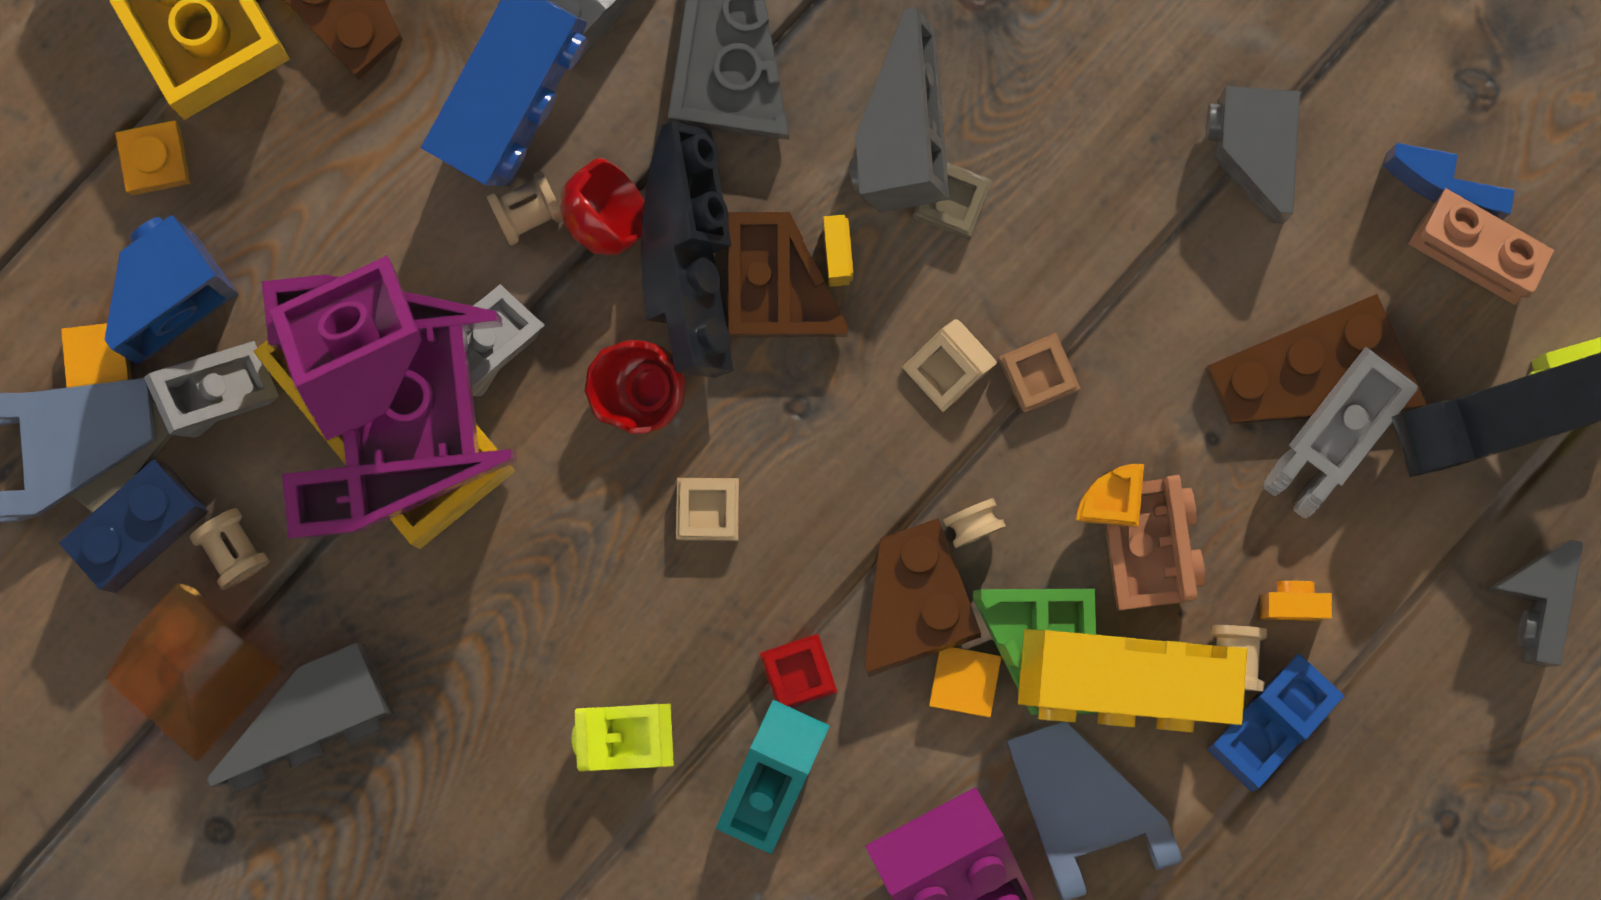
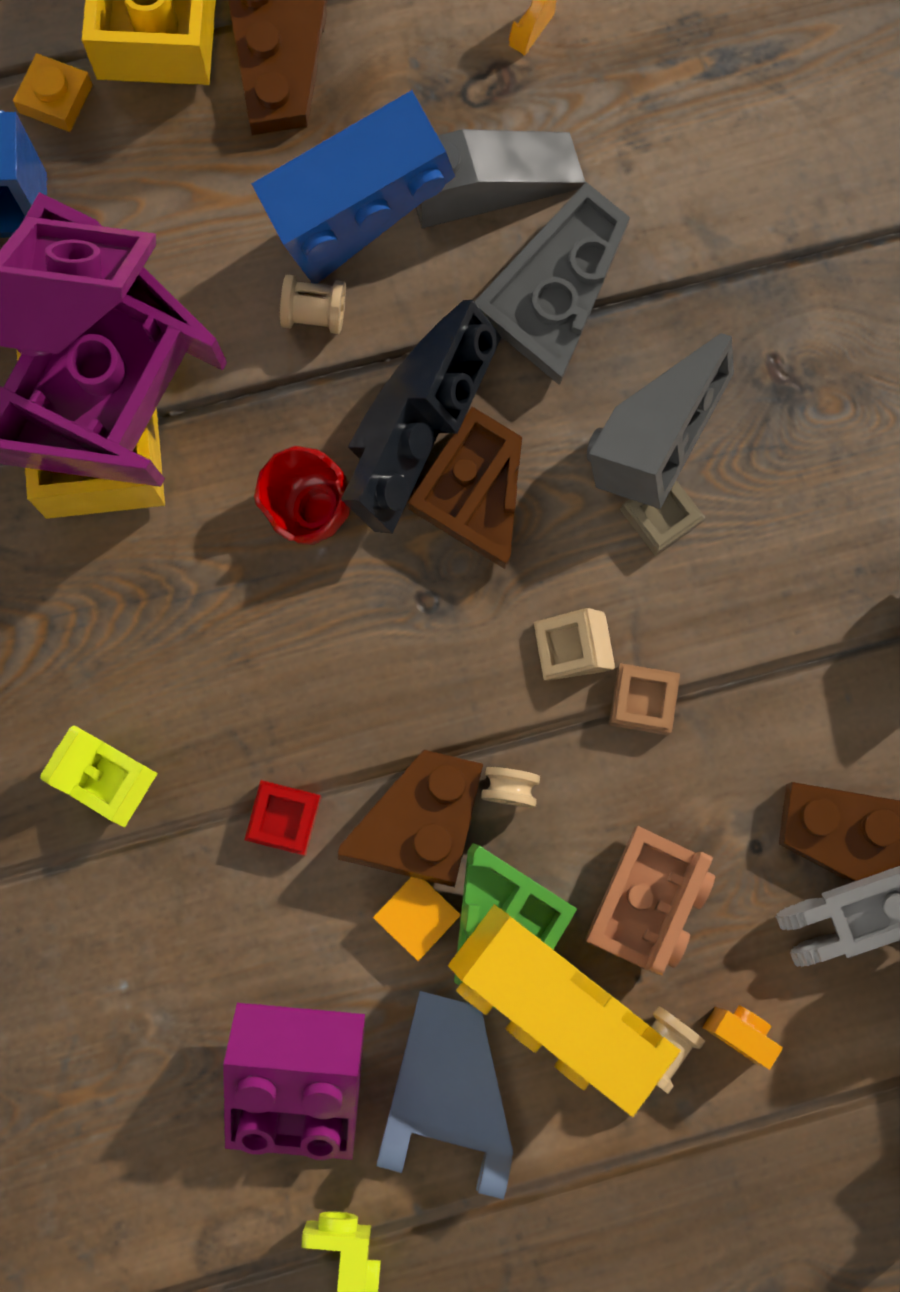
camera: 25 degrees right, 5 degrees down
(495, 347) = (204, 389): light grey slope -> none
(602, 208) = (371, 338): red hair -> none
(707, 509) = (298, 635): tan tile -> none
(772, 776) = (201, 890): teal slope -> none
(838, 250) = (541, 492): yellow tile -> none
(1113, 498) = (642, 841): light orange tile -> none
(1275, 722) = (665, 1128): blue slope -> none

